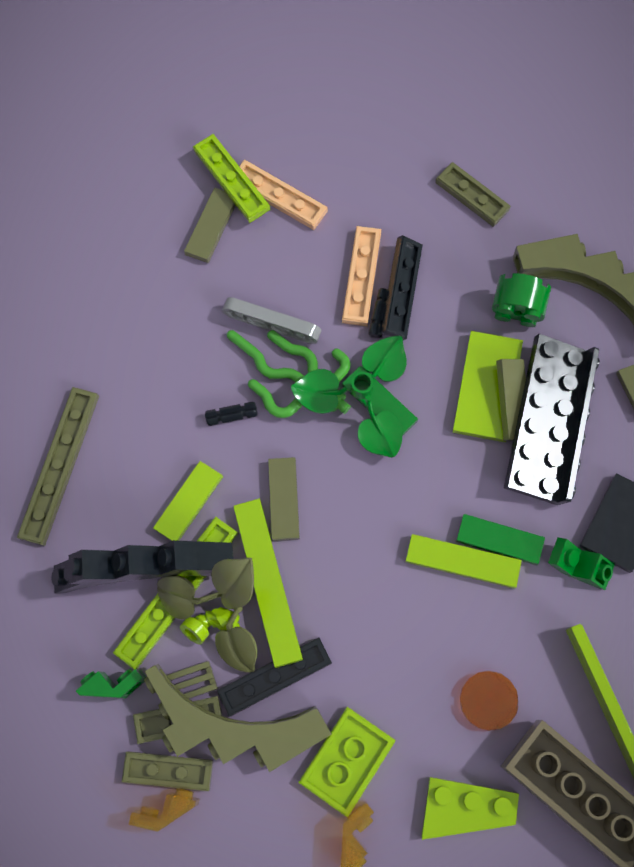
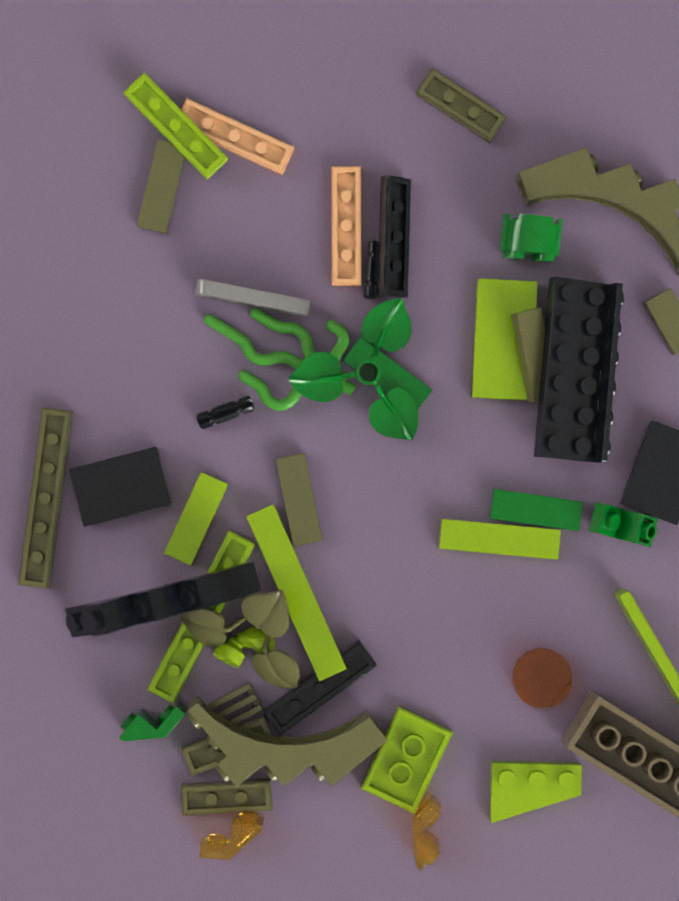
camera: 15 degrees left, 15 degrees up
(126, 464) = (120, 486): none -> black tile

